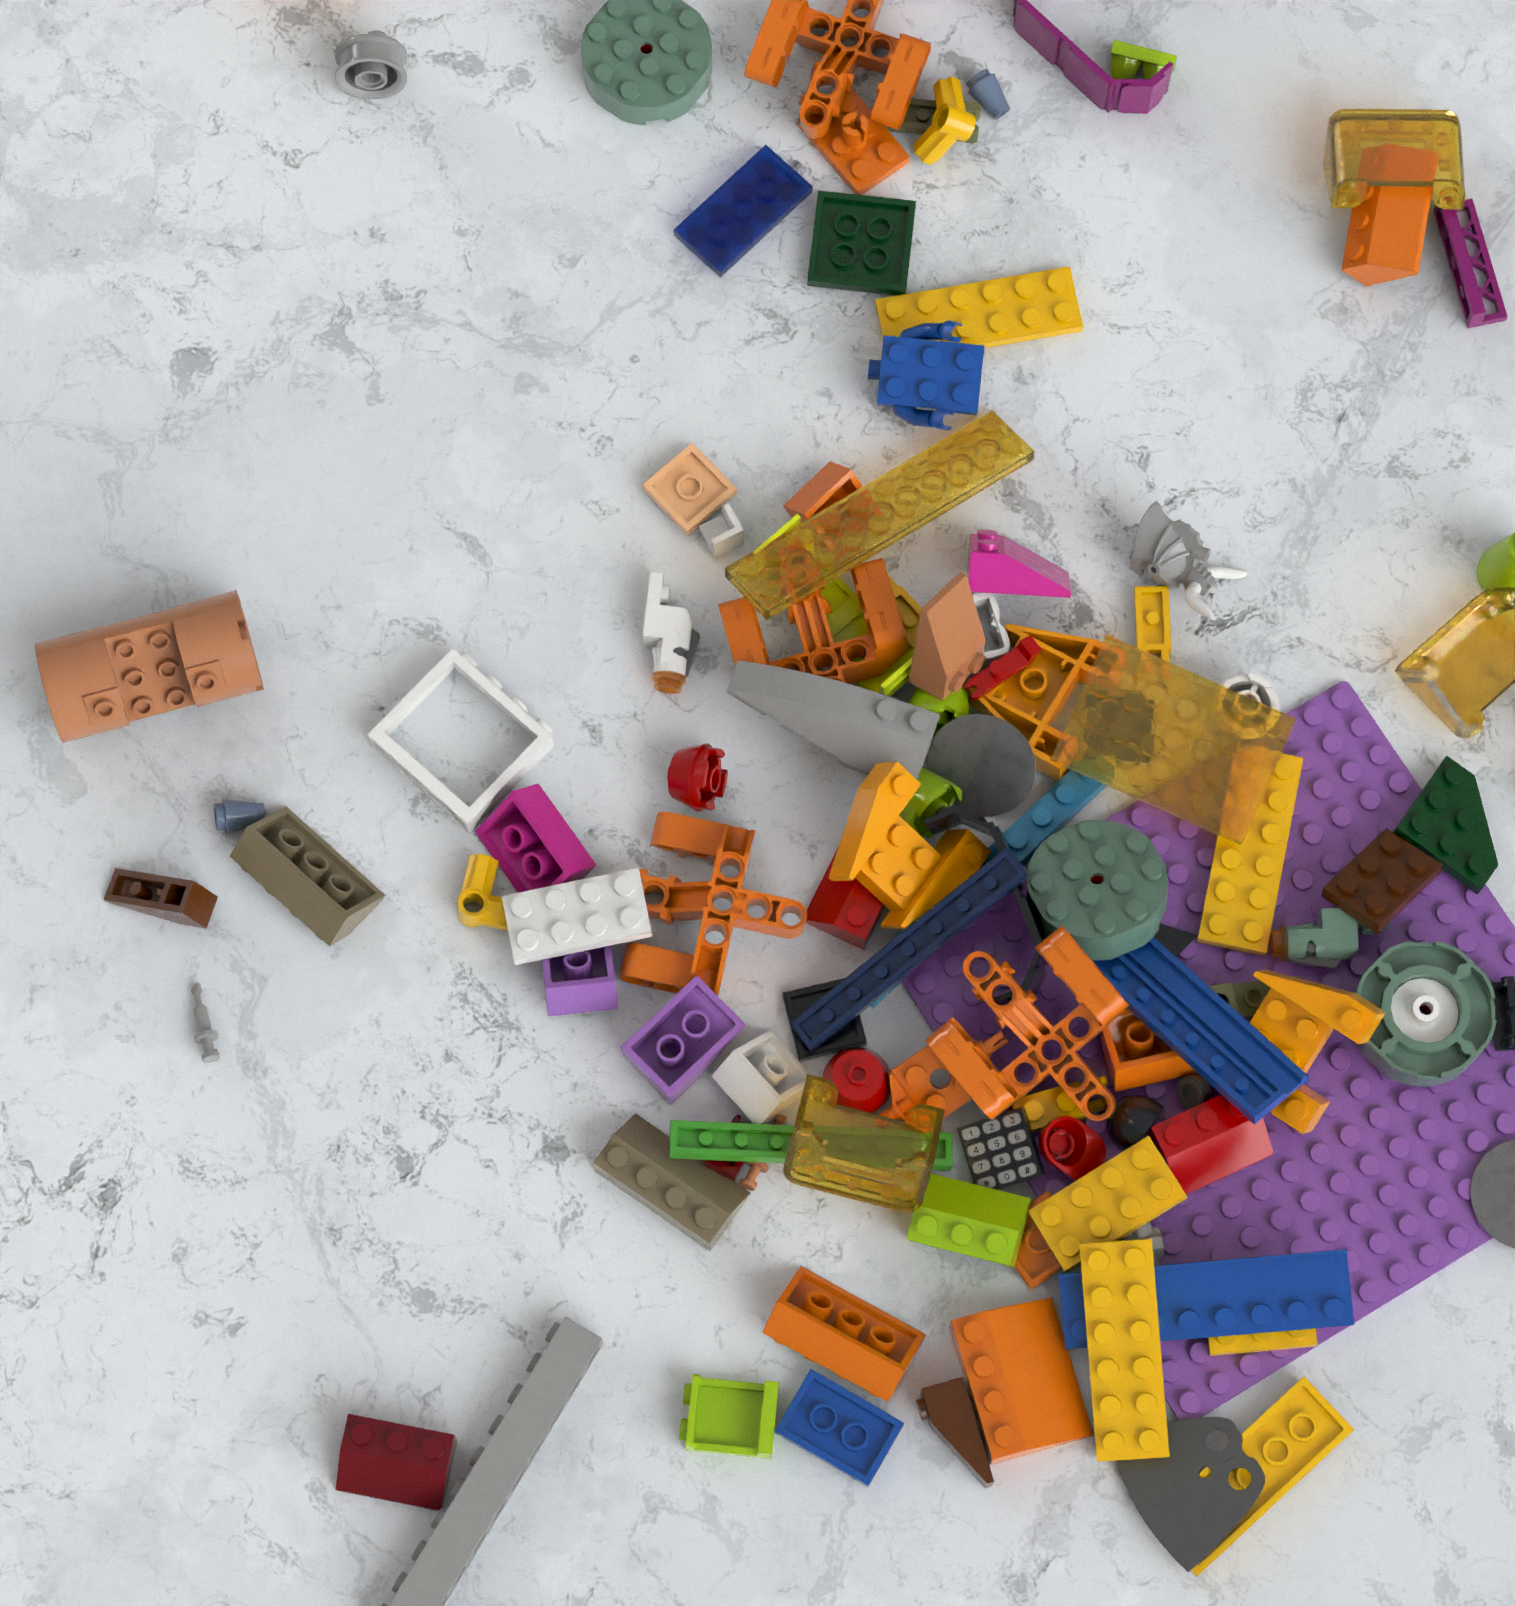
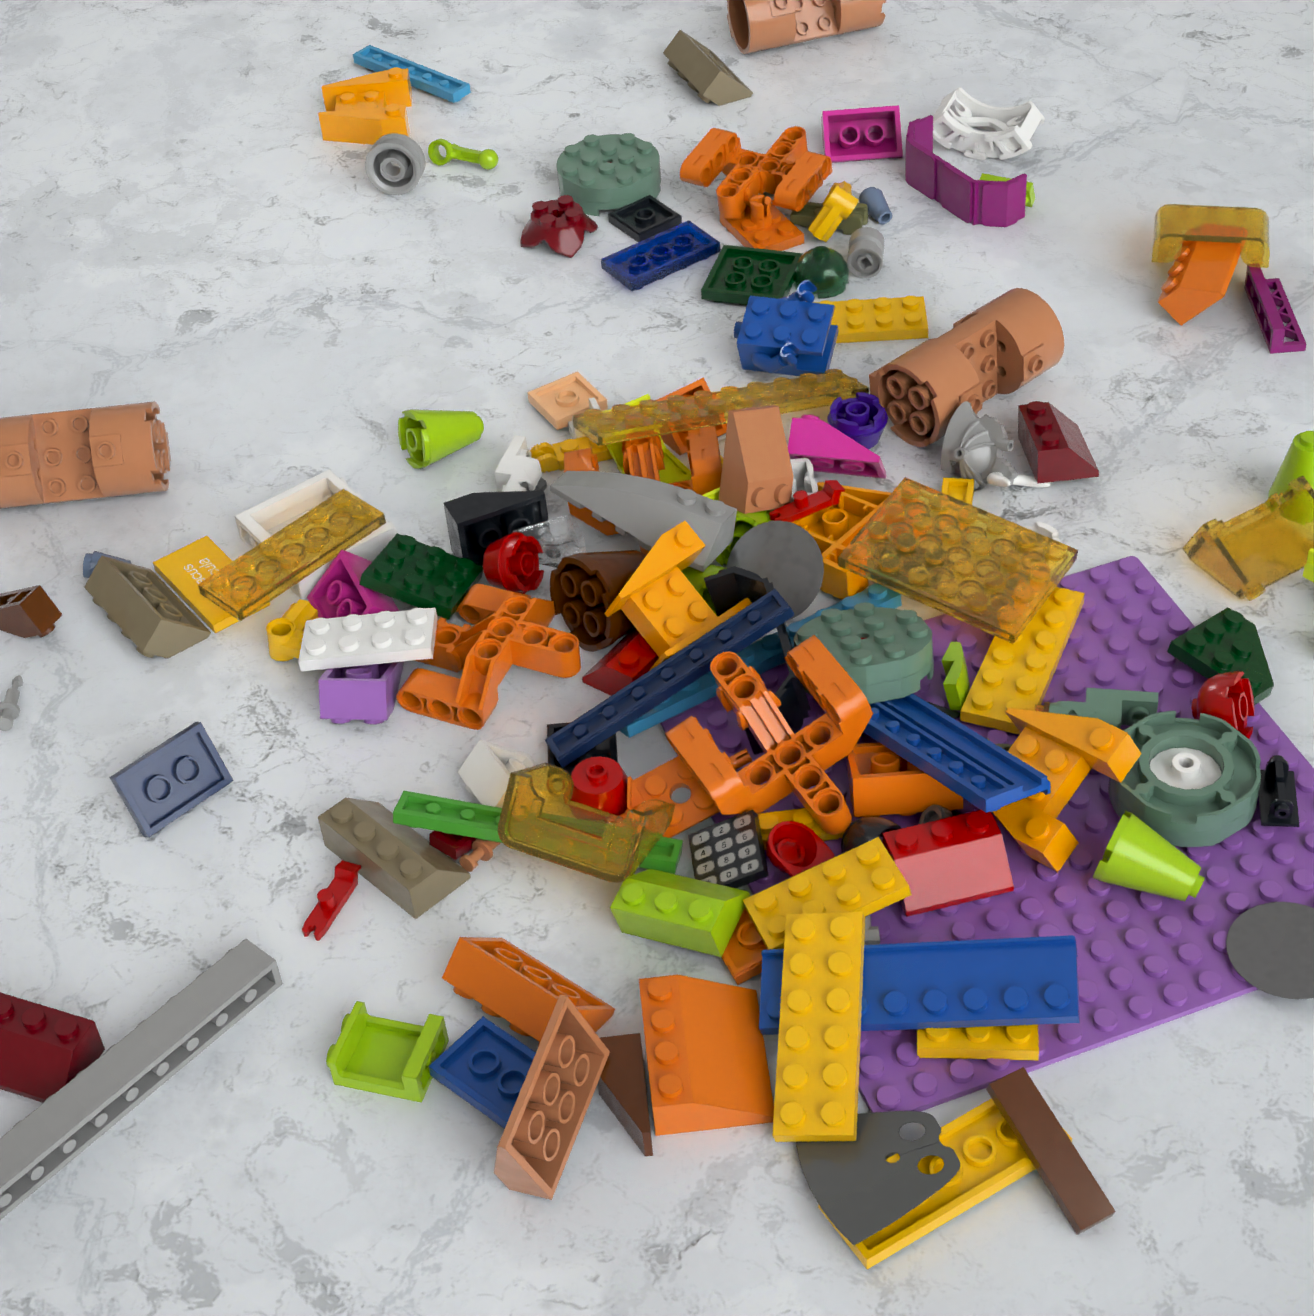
camera: 15 degrees right, 30 degrees down
(362, 823) = (187, 569): none -> yellow tile
(424, 1124) = (171, 779): none -> plate
(454, 793) = (291, 554): none -> clear yellow plate
(478, 26) = (487, 158): none -> lime piece
(558, 571) = (436, 434): none -> lime cone
(604, 807) = (421, 575): none -> dark green plate
(614, 185) = (559, 224): none -> dark red brick
(625, 1242) = (332, 899): none -> red piece
(662, 722) = (488, 516): none -> black slope
(682, 1040) = (434, 740): medium lavender slope -> none
(706, 132) = (644, 218): none -> black tile
(709, 573) = (552, 456): none -> yellow hinge
(731, 728) = (557, 539): none -> clear slope
(807, 820) = (585, 589): none -> reddish brown cone
(902, 1475) = (551, 1104): none -> nougat slope
(943, 233) = (824, 269): none -> clear green cylinder
(990, 192) = (865, 252): none -> light grey wheel
(1031, 508) = (859, 418): none -> dark purple cone
(1180, 379) = (981, 356): none -> nougat cylinder
(1187, 882) = (957, 680): none -> lime slope
(1249, 523) = (1053, 444): none -> dark red slope
(1338, 1448) = (1050, 1150): none -> reddish brown tile
(1381, 880) = (1150, 674): reddish brown plate -> none
(1394, 1122) = (1147, 862): none -> lime cone
(1454, 914) = (1228, 699): none -> red cylinder

